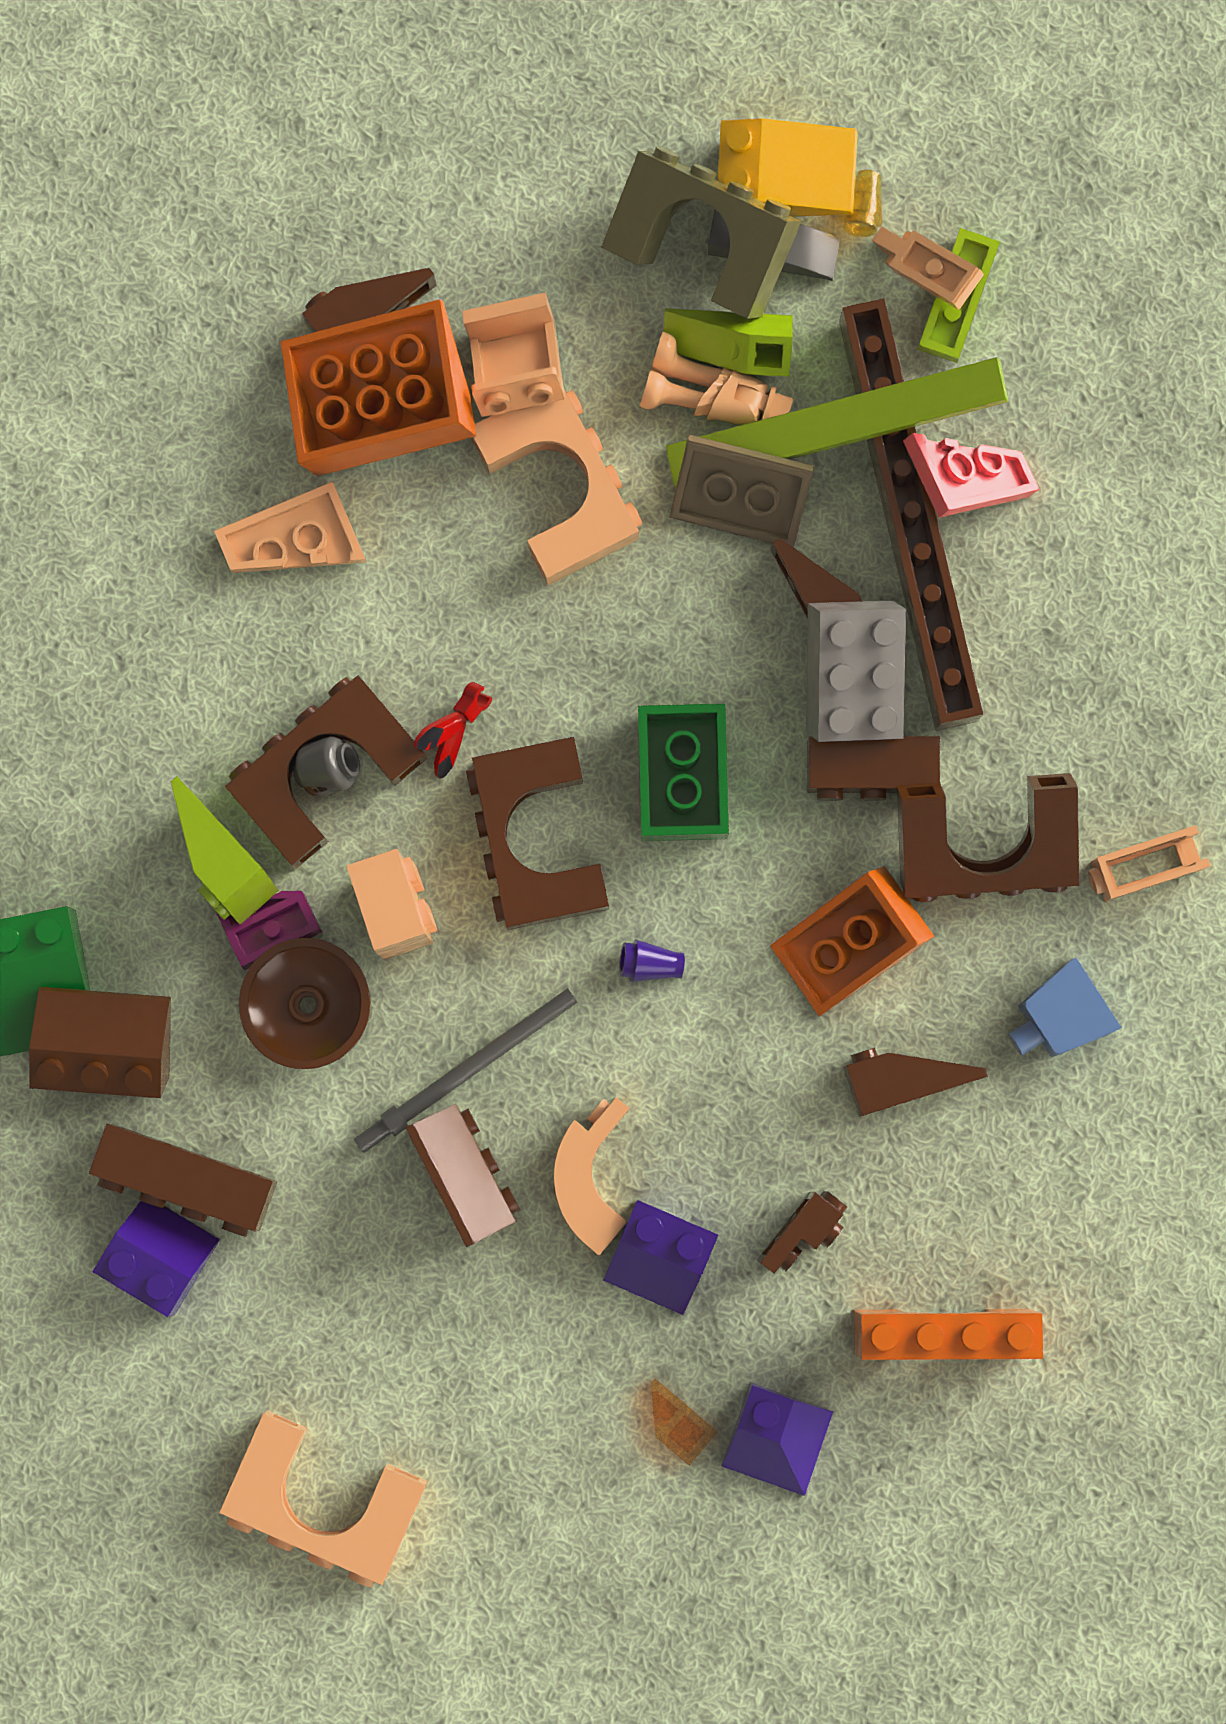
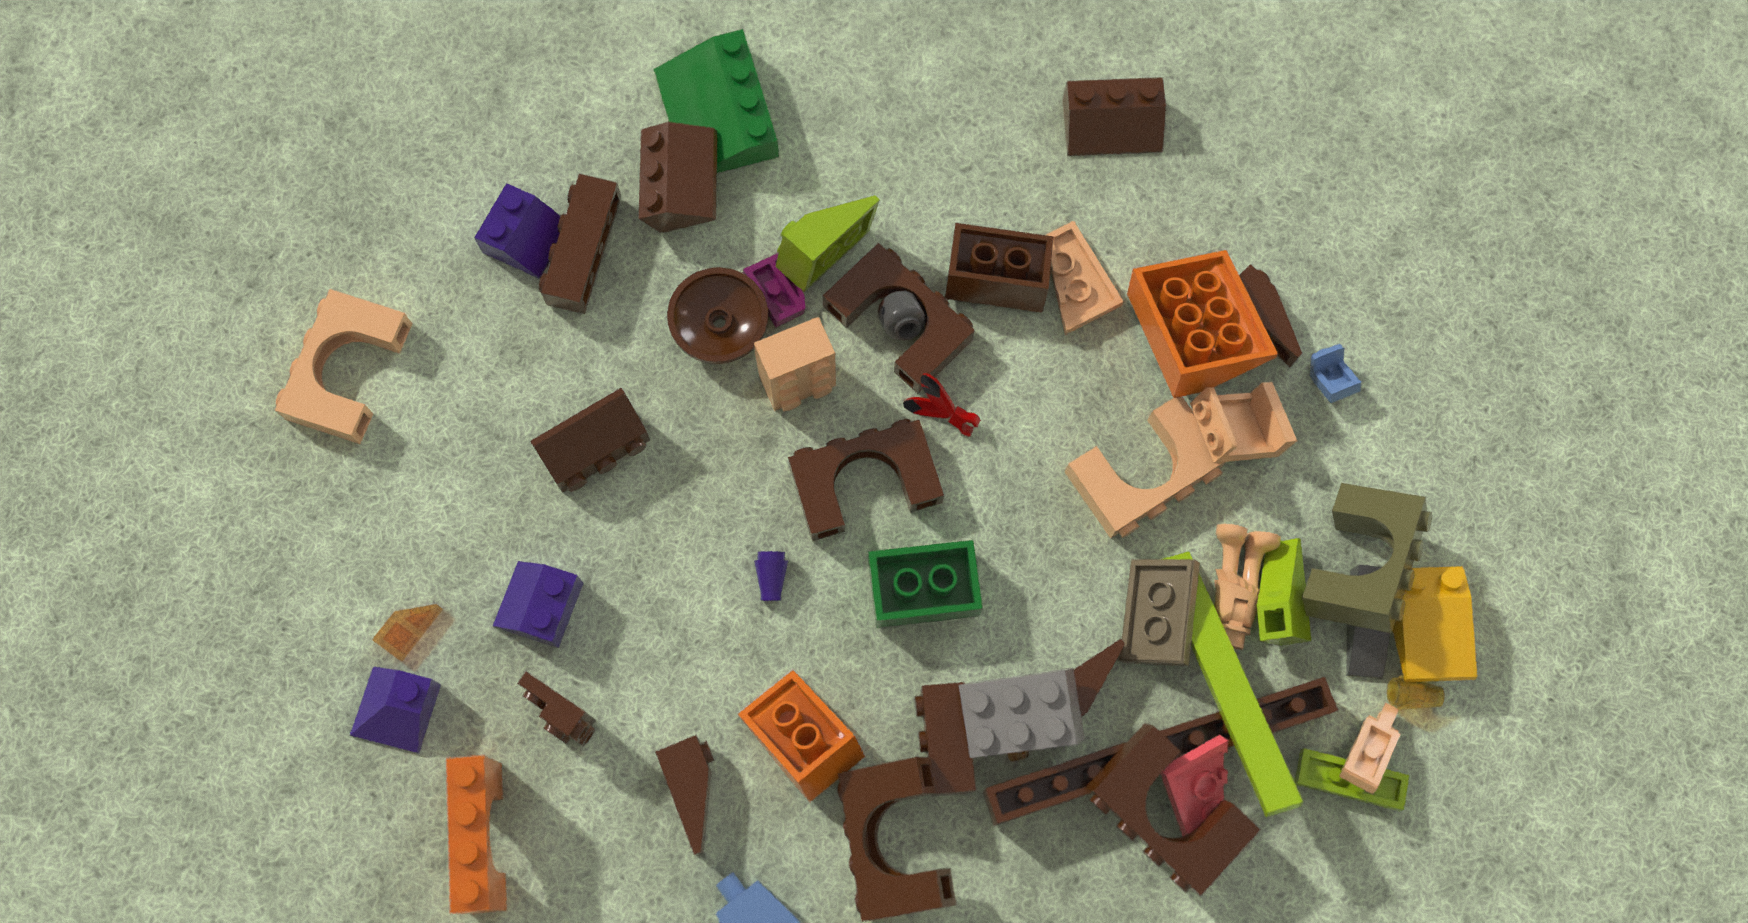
camera: 80 degrees right, 10 degrees down
(69, 459) = (1114, 116): none -> reddish brown slope
(272, 634) = (999, 267): none -> reddish brown slope
(395, 1119) = (637, 396): dark grey bar -> none
(455, 232) = (1332, 374): none -> medium blue bracket
(578, 1200) = (592, 529): light nougat arch -> none
(1039, 492) = (1193, 858): none -> reddish brown arch

